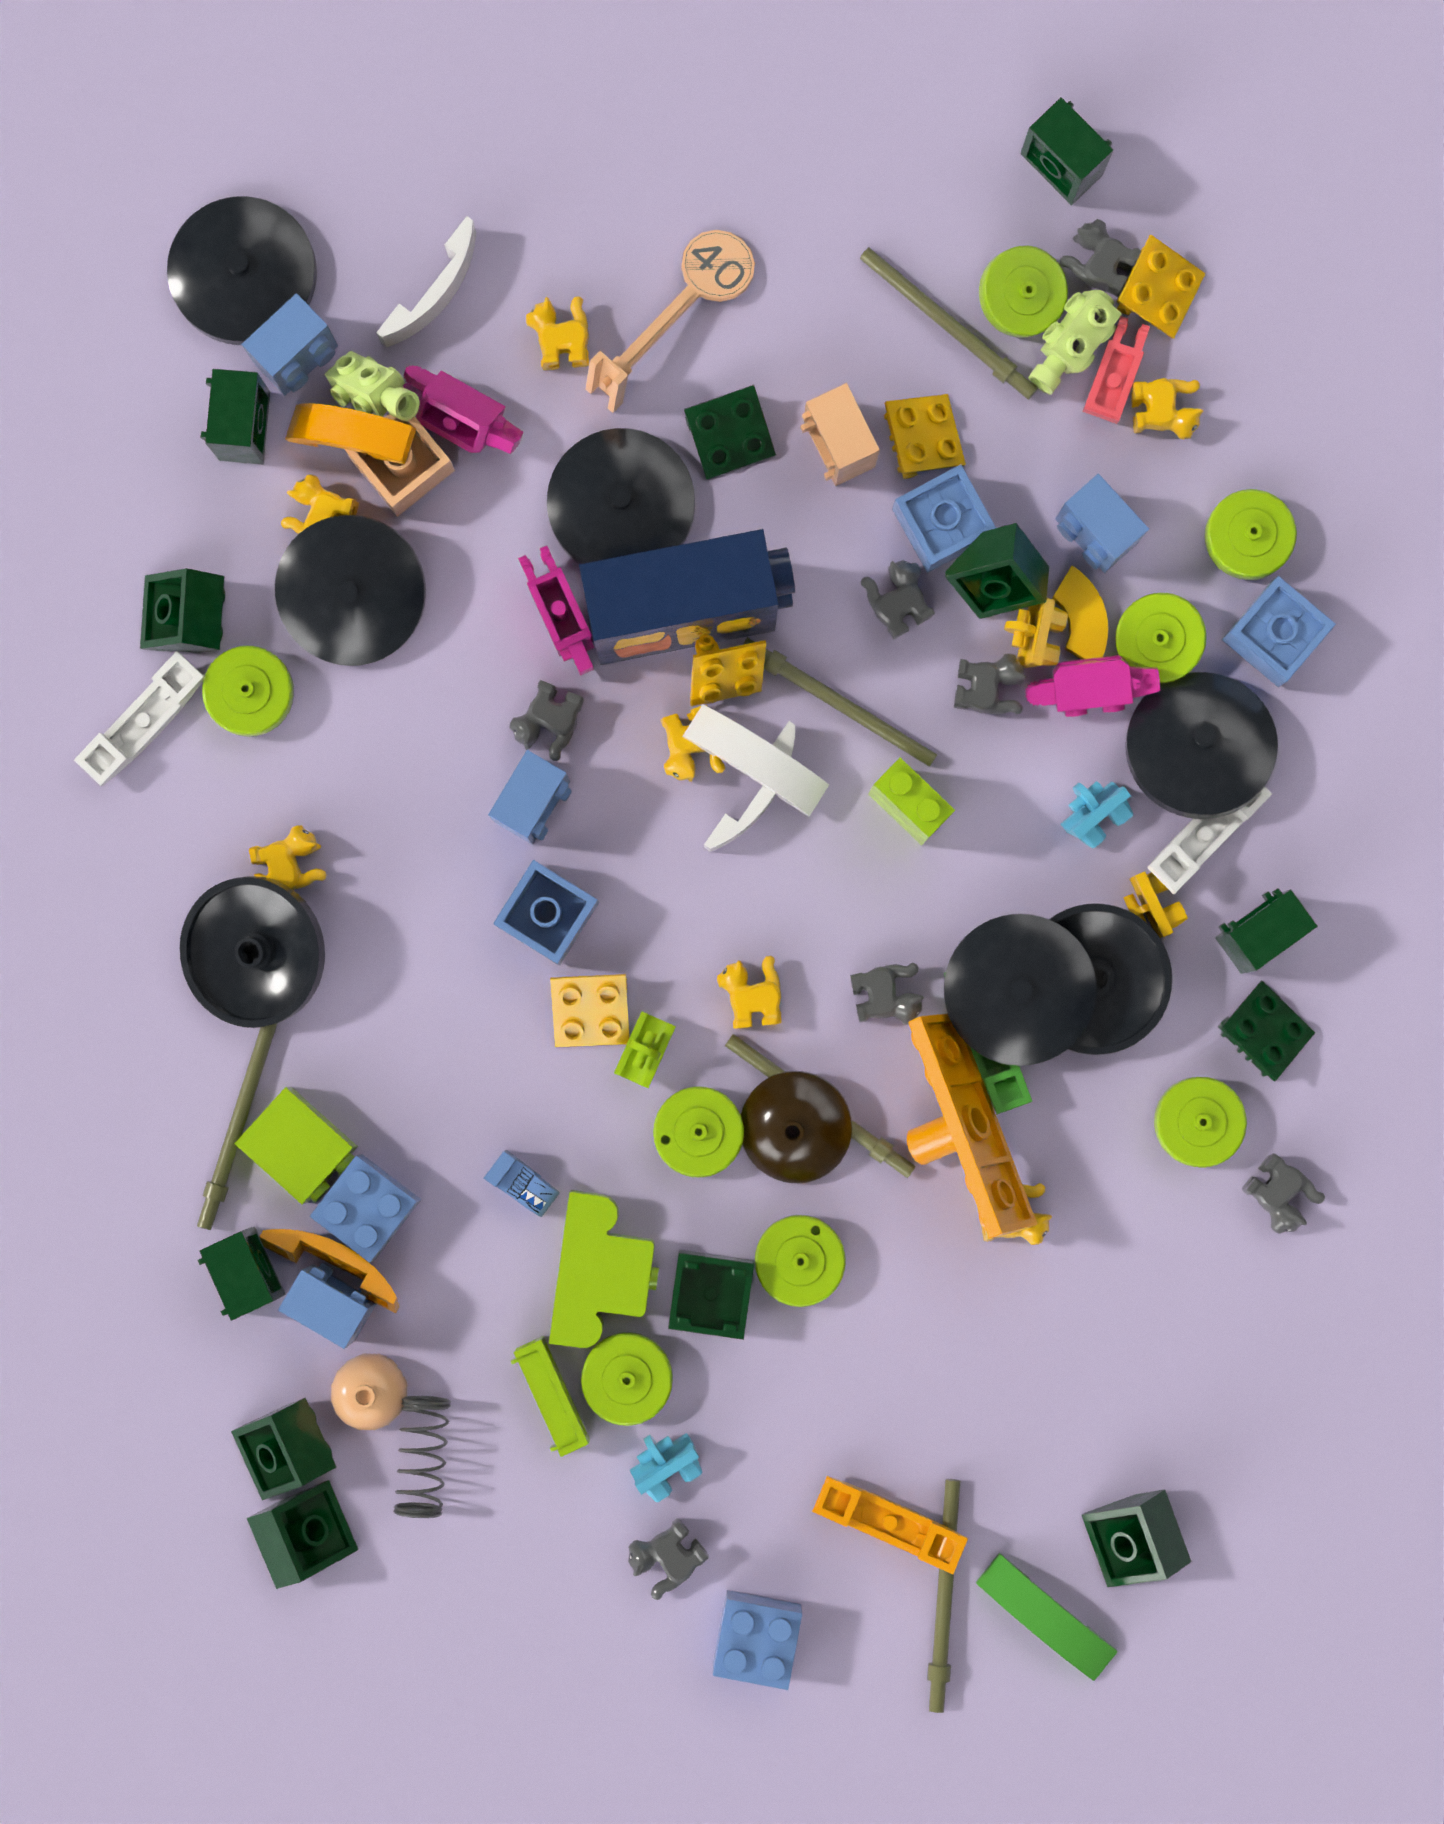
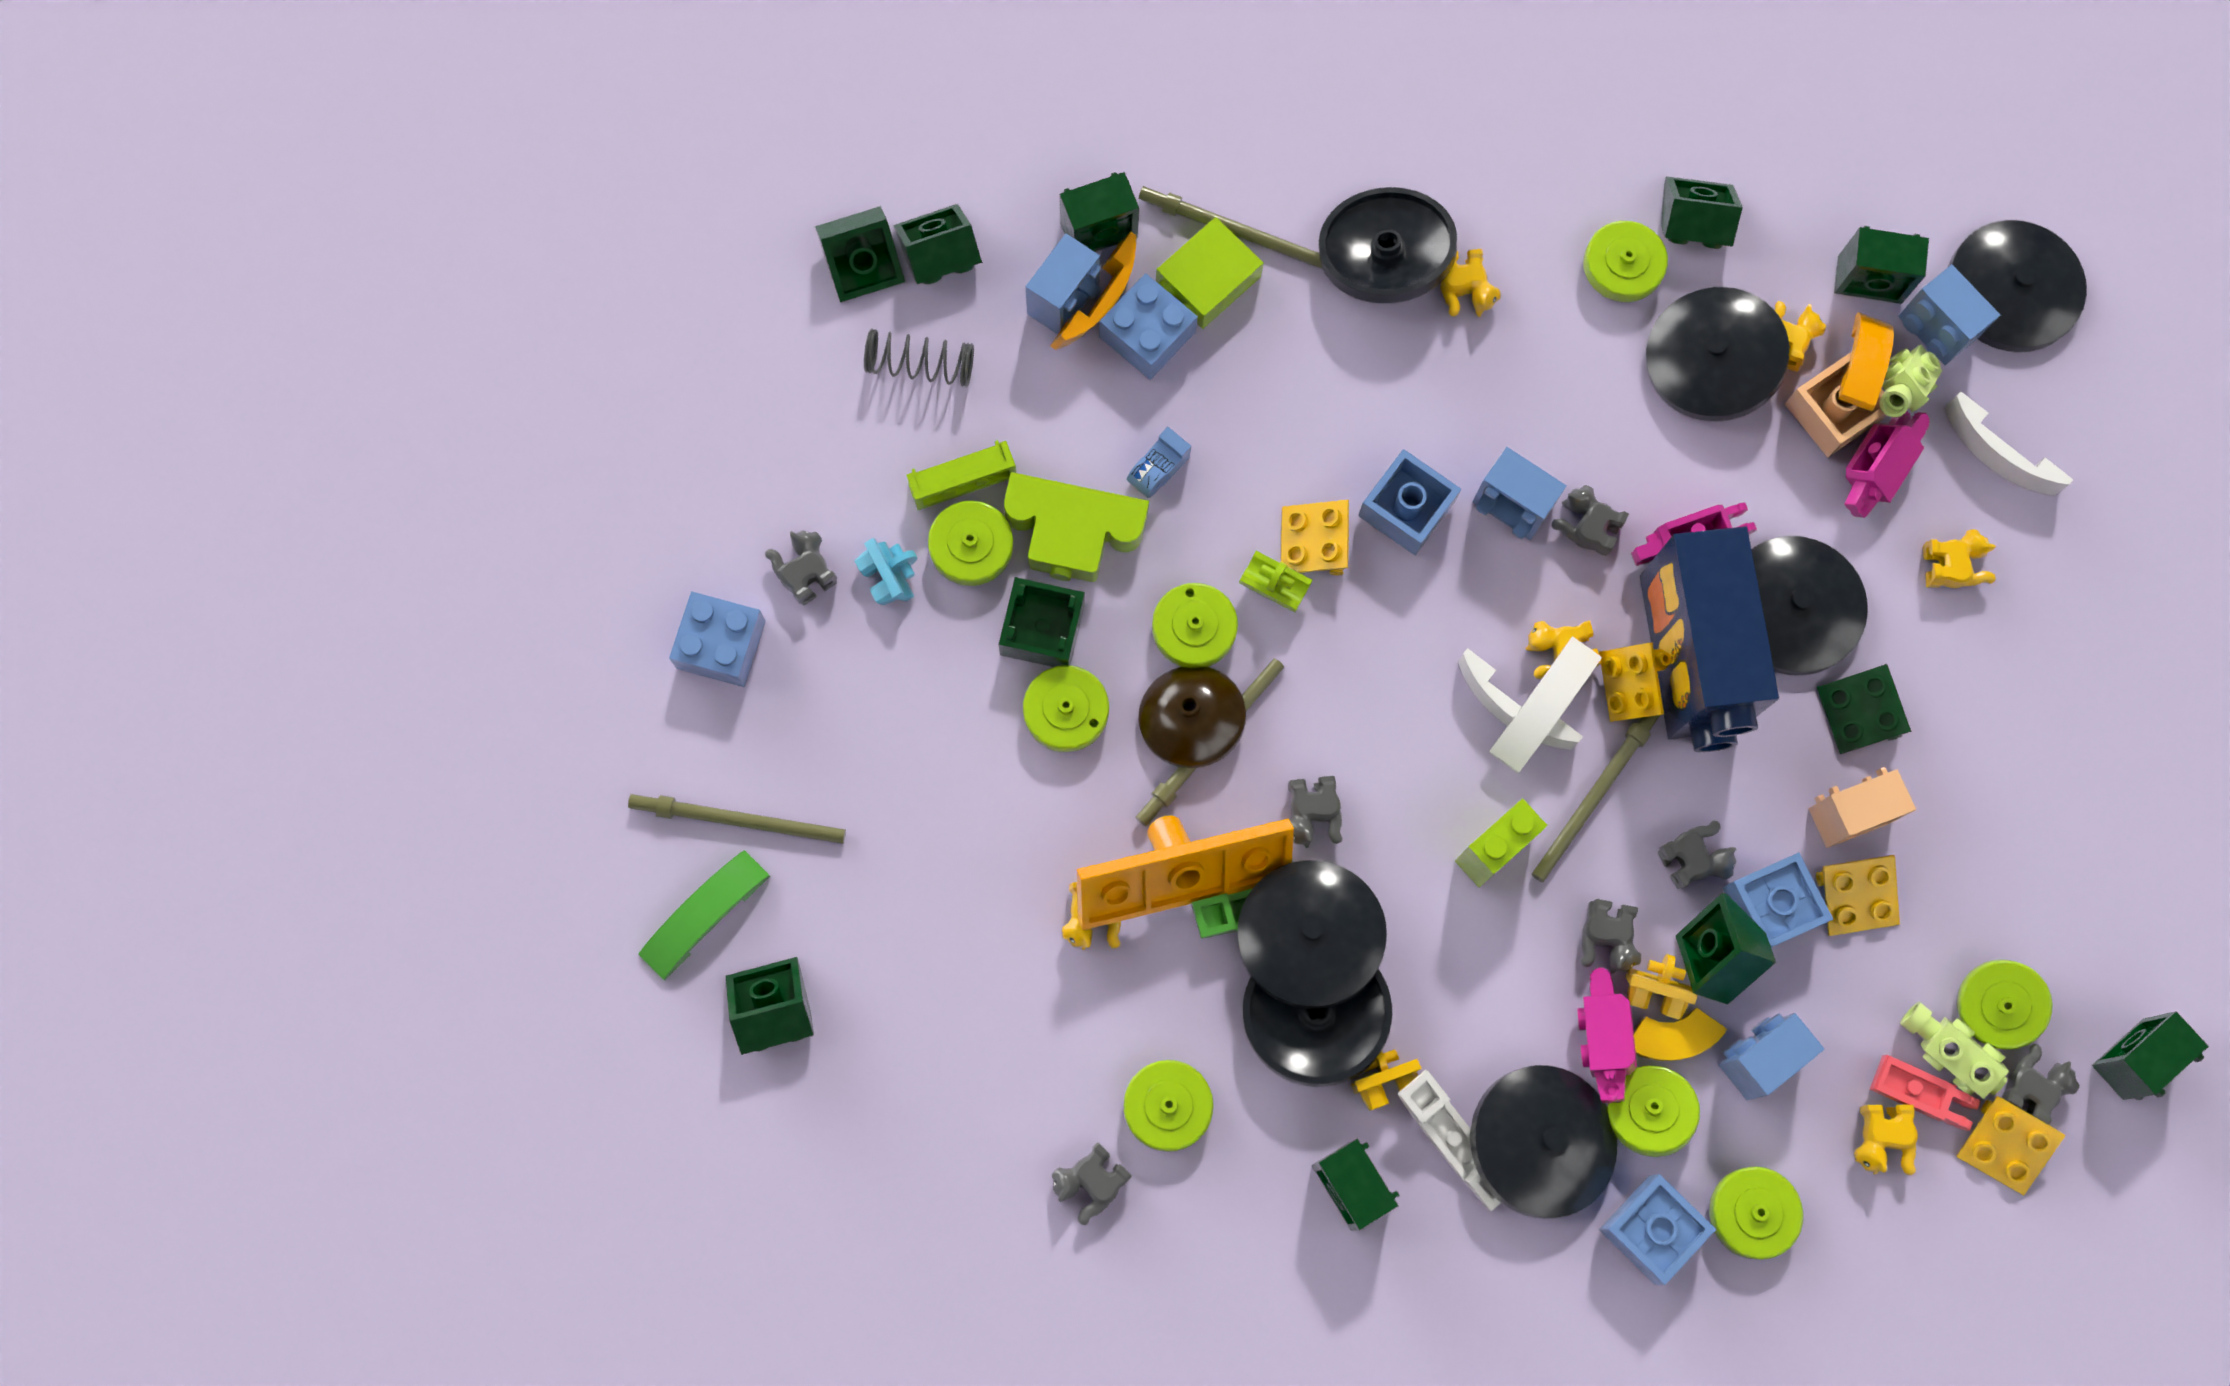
camera: 95 degrees right, 10 degrees down
(142, 721) = (1599, 172): white slope -> none
(368, 1391) = (981, 317): light nougat cylinder -> none
(715, 268) = (2024, 708): light nougat piece -> none
(746, 998) = (1317, 690): yellow animal -> none
(890, 1523) = (811, 771): light orange slope -> none
(1002, 369) = (1926, 979): olive bar -> none
(1092, 807) = (1470, 1017): medium azure hips -> none
(1266, 1031) = (1253, 1183): dark green hinge -> none

